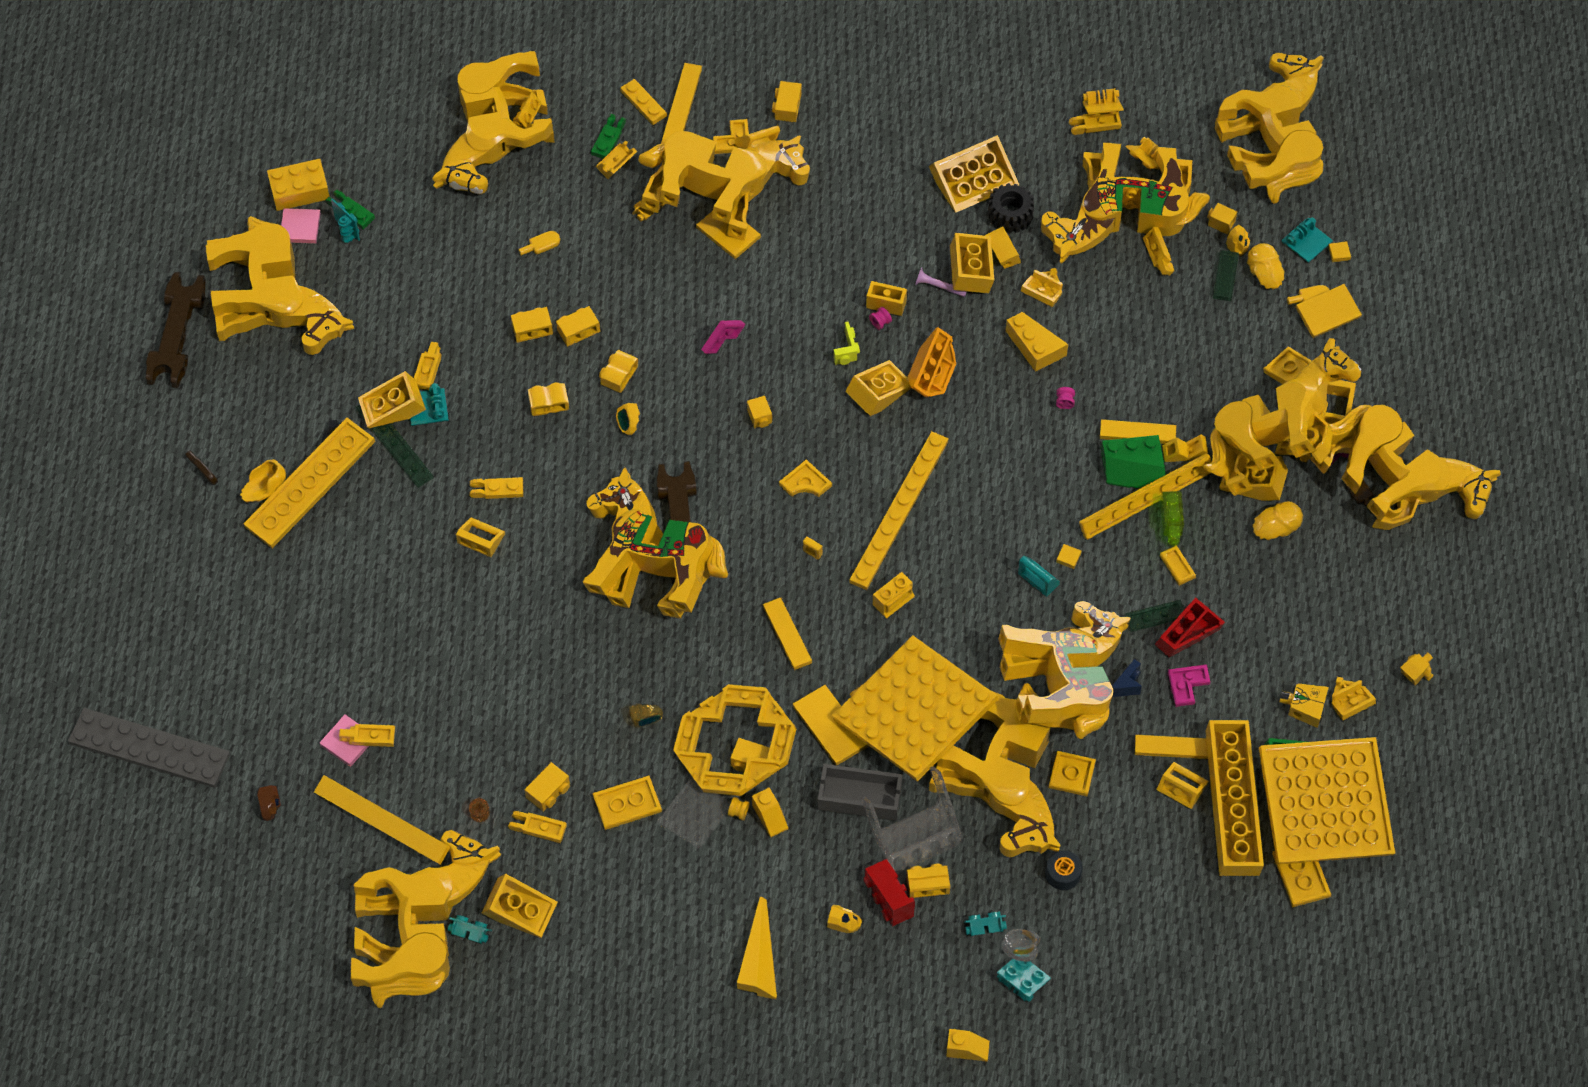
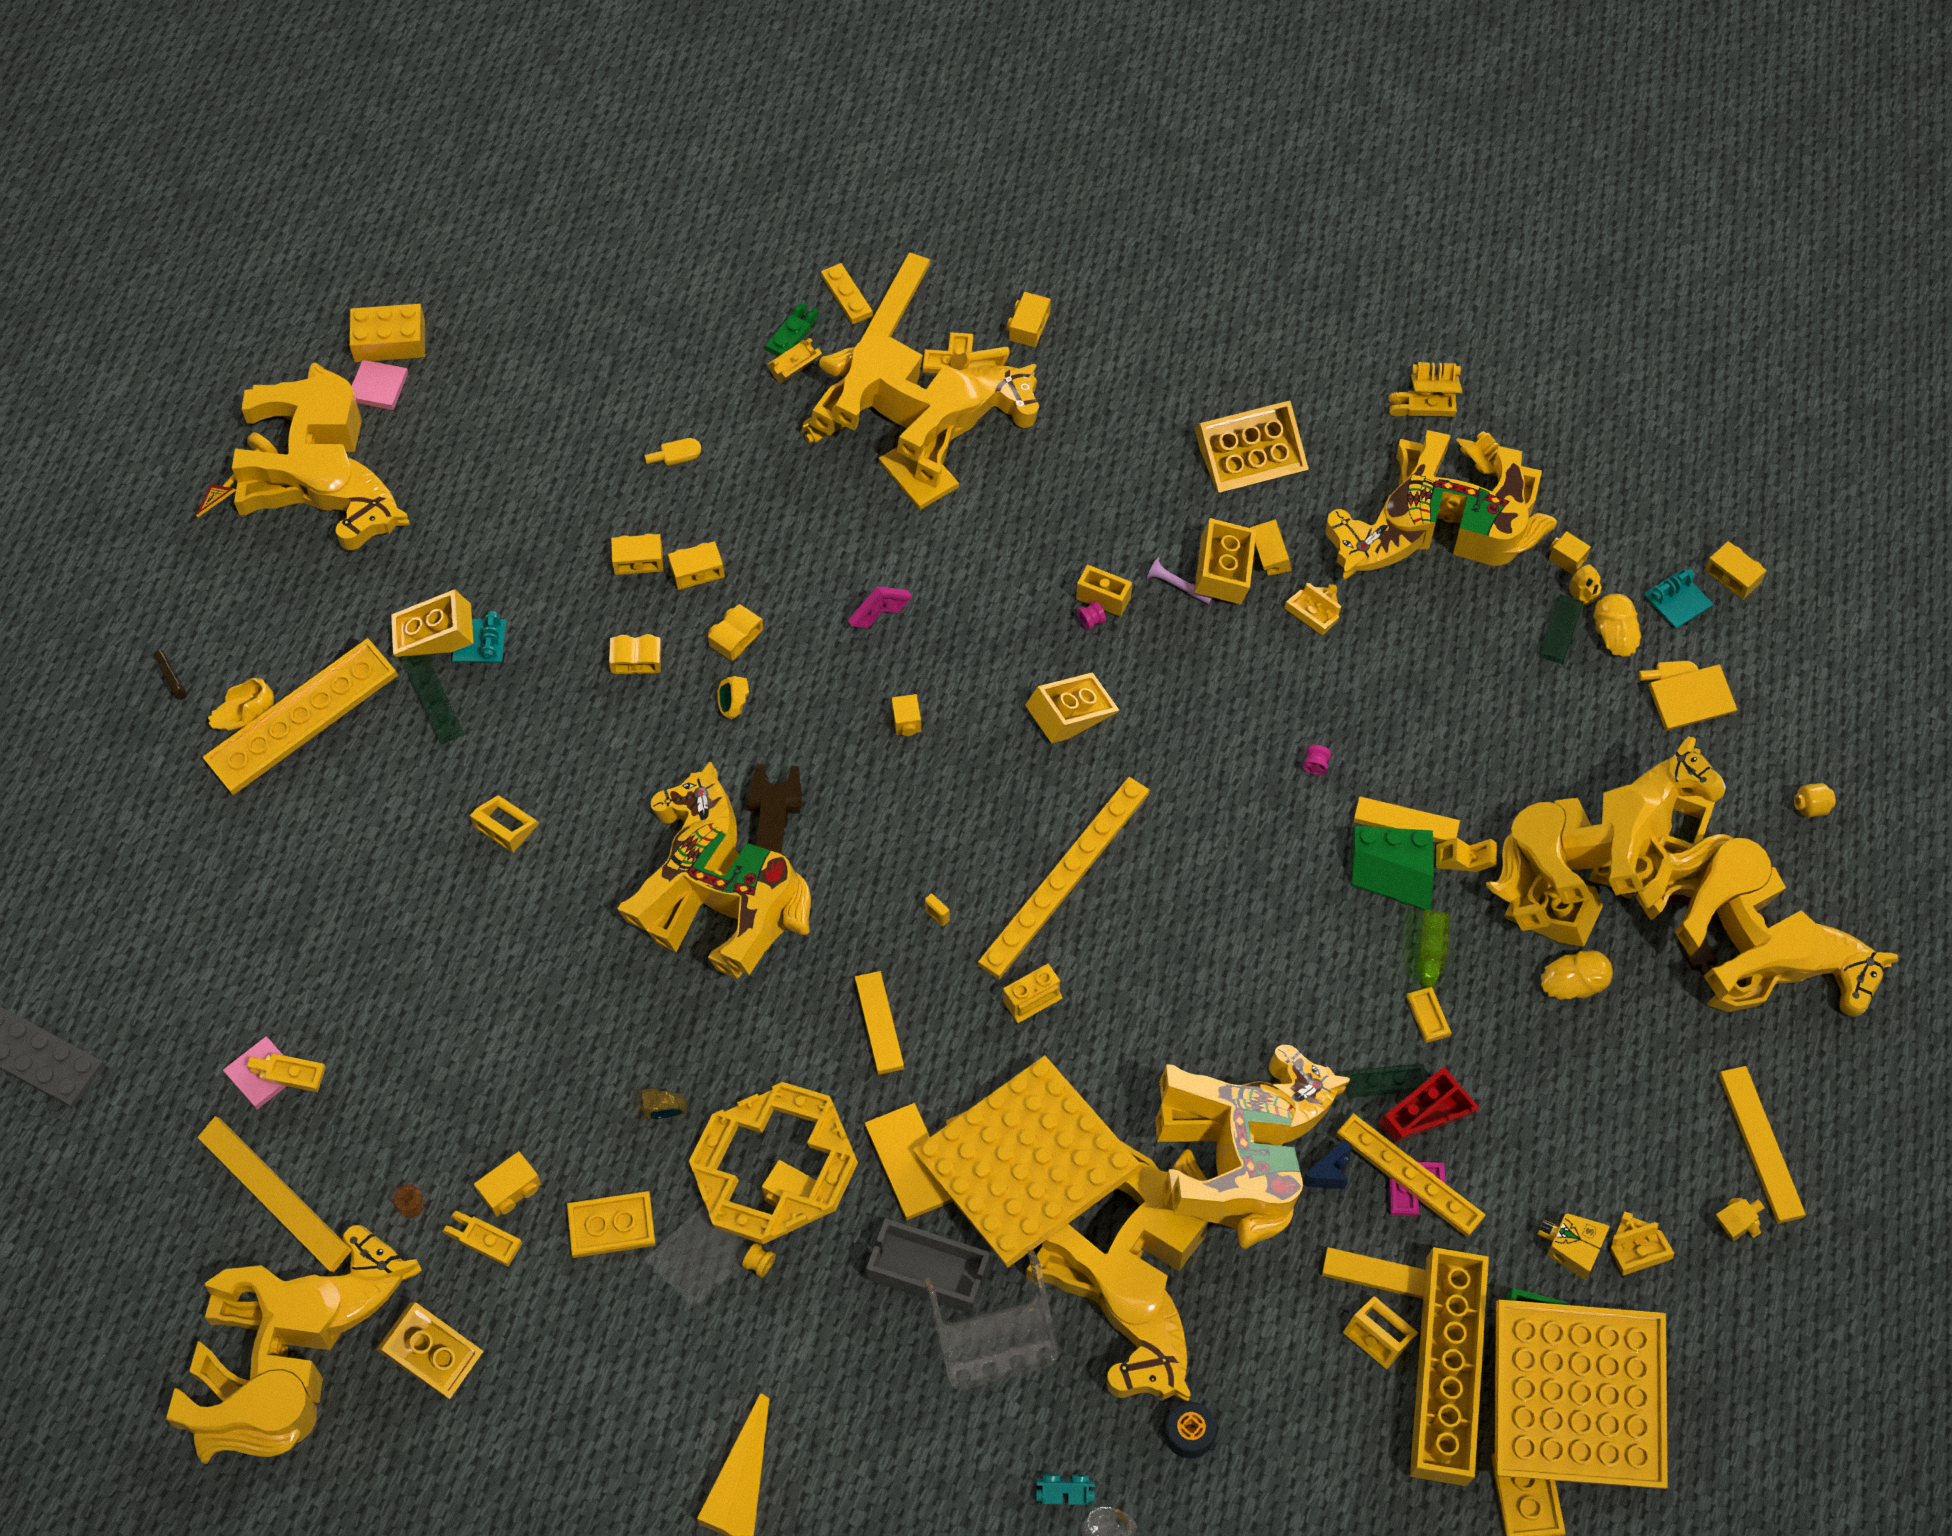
camera: 10 degrees right, 0 degrees up
(169, 356) = (171, 520): dark brown piece -> none
(199, 328) = (217, 493): none -> yellow piece
(269, 801) = (133, 1141): reddish brown rock -> none
(346, 222) = (432, 390): teal hinge -> none
(363, 215) = (447, 374): green hinge -> none
(428, 366) = (492, 588): yellow hinge -> none
(461, 926) = (364, 1371): teal hinge -> none
(489, 128) = (642, 296): yellow animal -> none
(497, 488) = (542, 761): yellow hinge -> none
(528, 111) = (694, 283): yellow hinge -> none
(769, 812) = (799, 1273): yellow slope -> none
(805, 479) = (948, 814): yellow tile -> none
(843, 920) = (868, 1448): yellow rock -> none
(847, 354) = (1039, 656): neon yellow bracket -> none
(889, 892) = (939, 1420): red wedge -> none
(928, 881) = (997, 1412): yellow brick -> none
(933, 365) = (1148, 688): light orange wedge -> none
(1013, 196) = (1296, 482): black tyre -> none
(1035, 341) = (1290, 677): yellow wedge -> none
(1037, 576) = (1233, 998): teal tile -> none
(1068, 556) = (1281, 977): yellow tile -> none
(1072, 773) = (1229, 1288): yellow tile -> none
(1144, 497) = (1399, 912): yellow tile -> none
(1158, 251) = (1476, 583): yellow hinge -> none
(1185, 676) = (1411, 1175): none -> yellow tile
(1276, 114) = (1663, 427): yellow animal -> none
(1286, 365) = (1624, 763): yellow tile -> none
(1339, 251) = (1720, 620): yellow tile -> none
(1345, 212) = (1735, 570): none -> yellow brick
(1425, 616) = (1762, 1145): none -> yellow tile
(1426, 371) = (1814, 800): none -> yellow head

